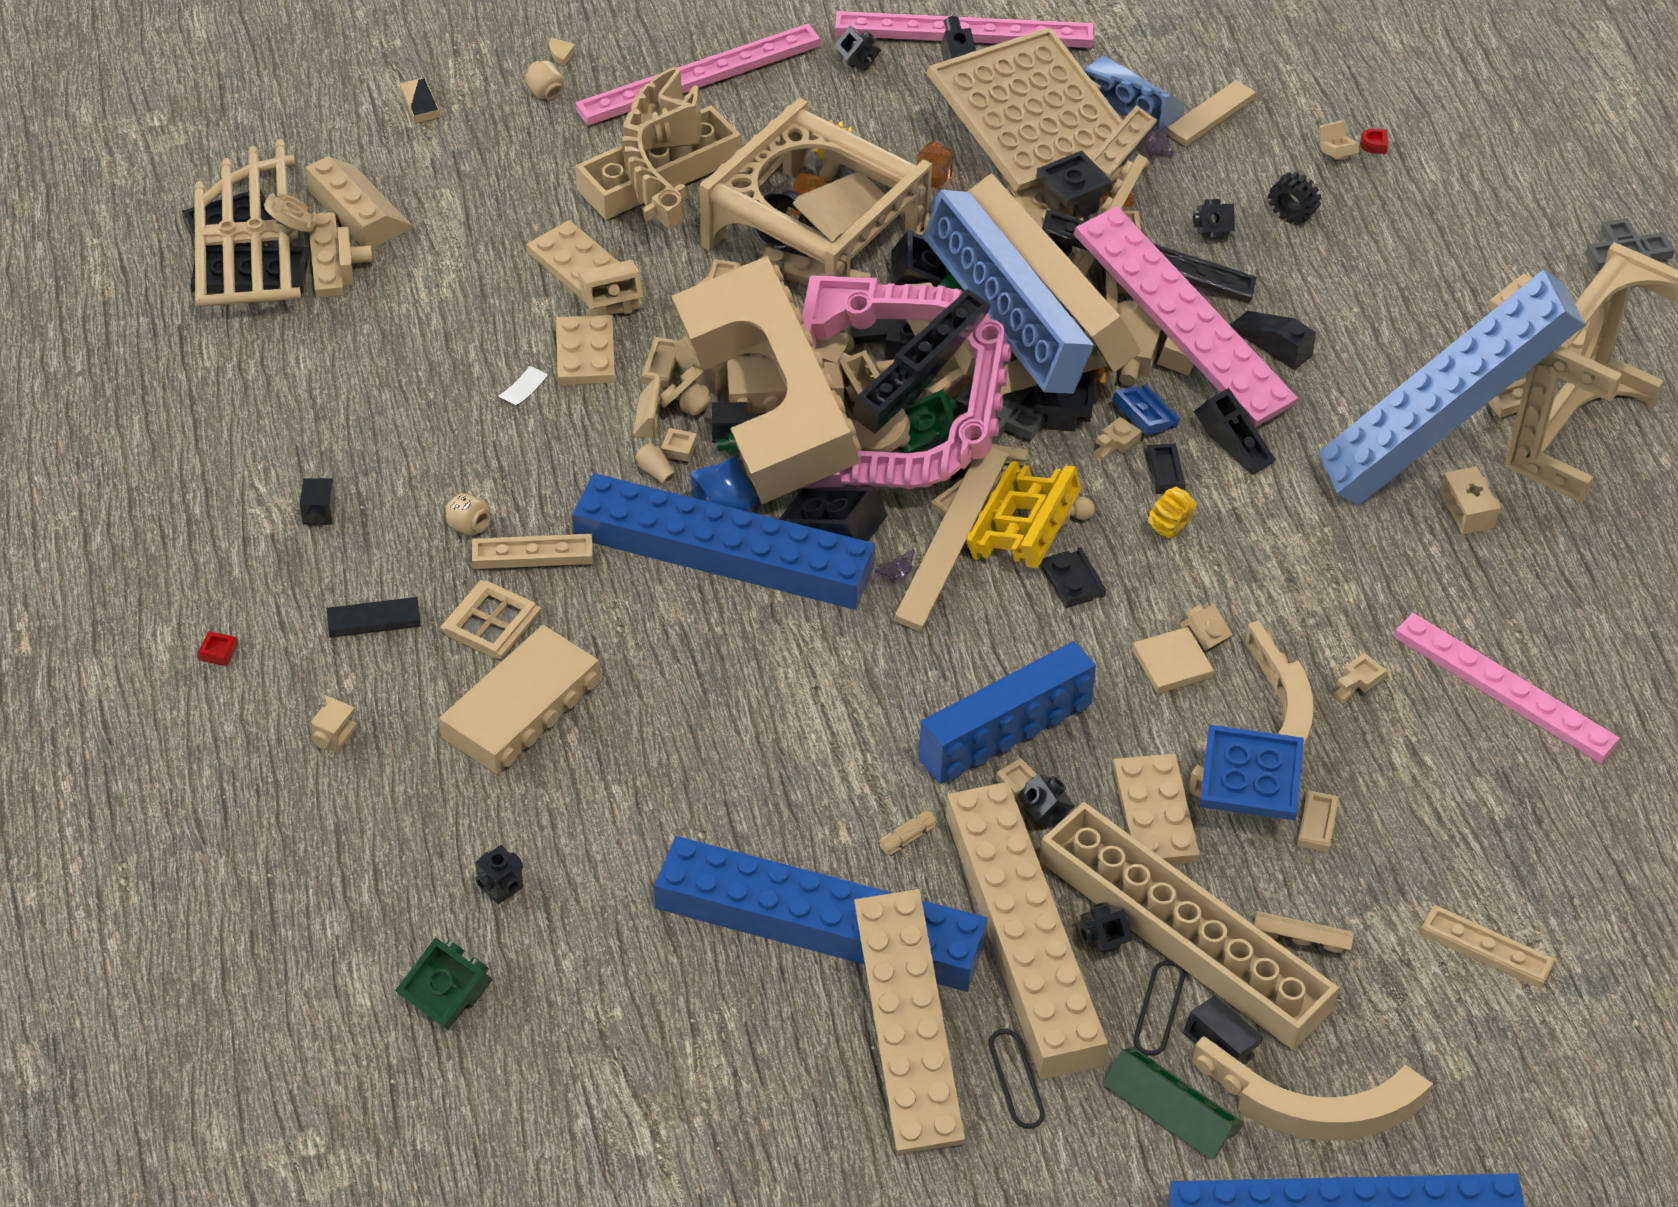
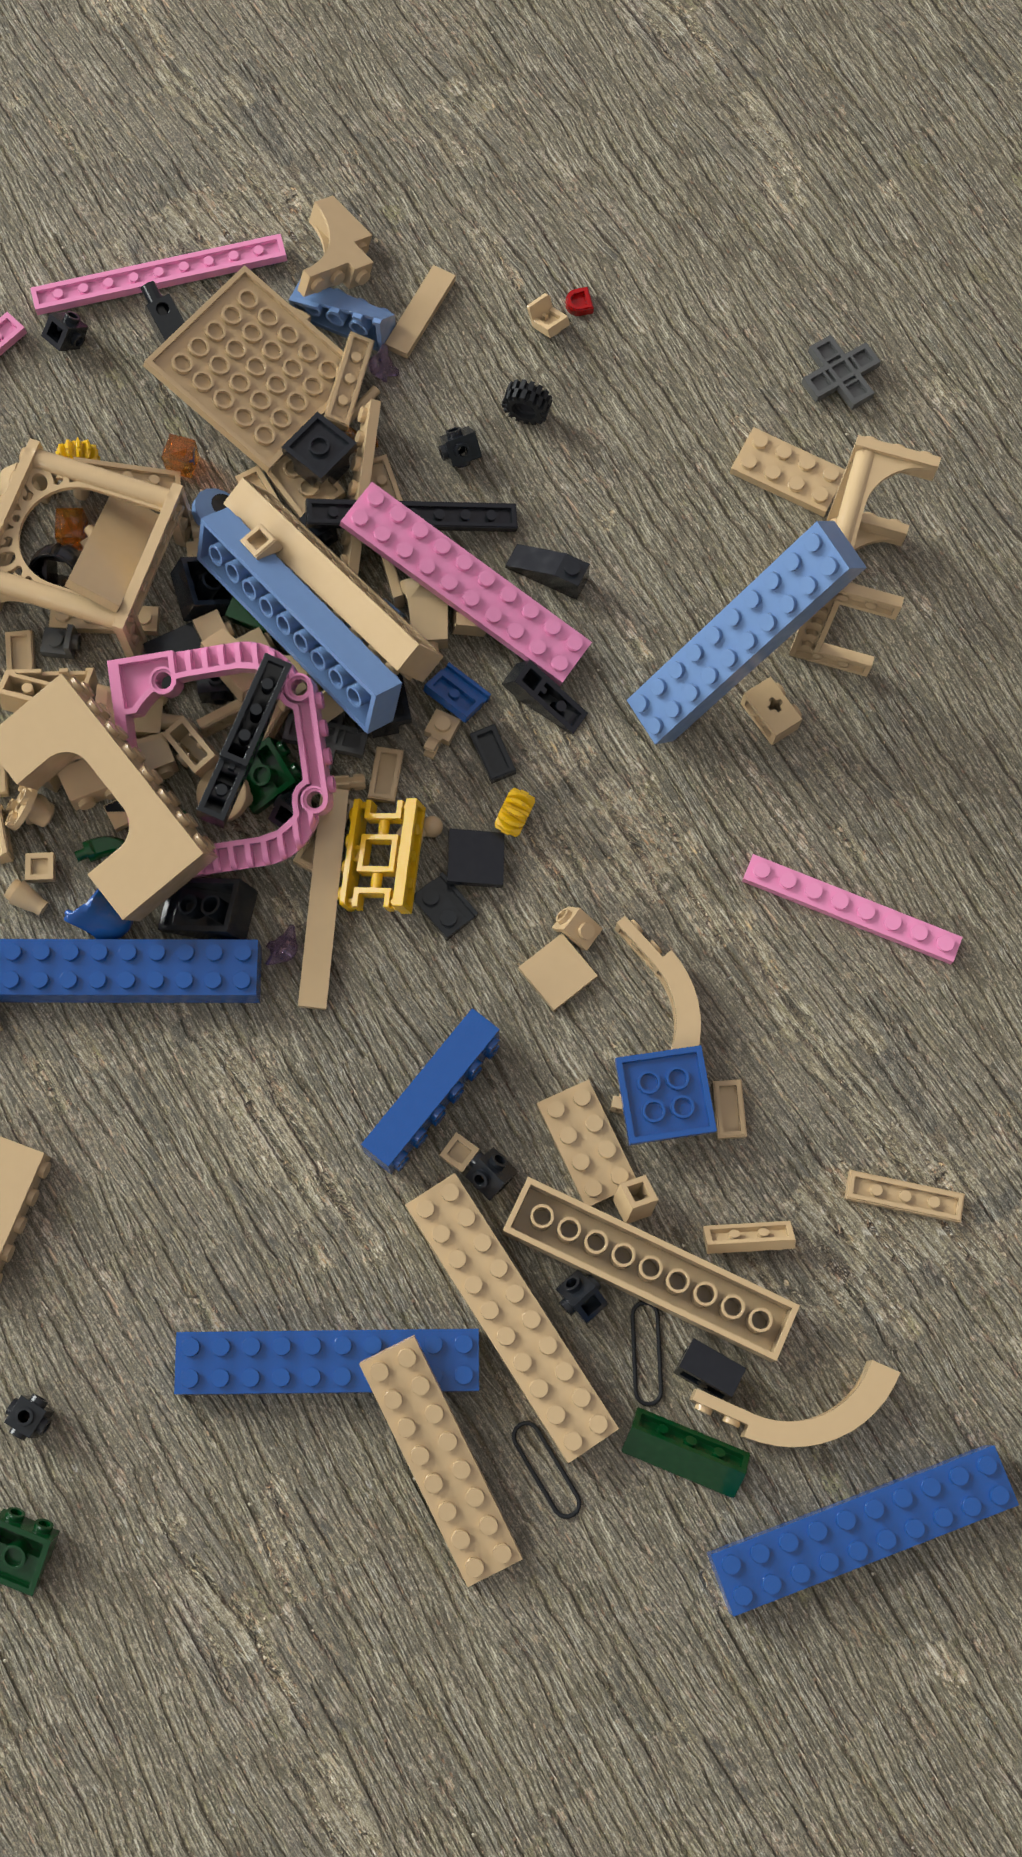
camera: 20 degrees left, 25 degrees up
(727, 415) = (80, 826): black brick -> none
(907, 832) = (379, 1241): tan axle -> none
(993, 218) = (261, 542): none -> tan slope
(1051, 455) = (385, 775): none -> tan tile
(1118, 542) = (475, 858): none -> black tile
(1148, 48) = (344, 249): none -> tan arch
(1192, 857) = (635, 1199): none -> tan brick
(1361, 674) = (726, 939): tan plate -> none

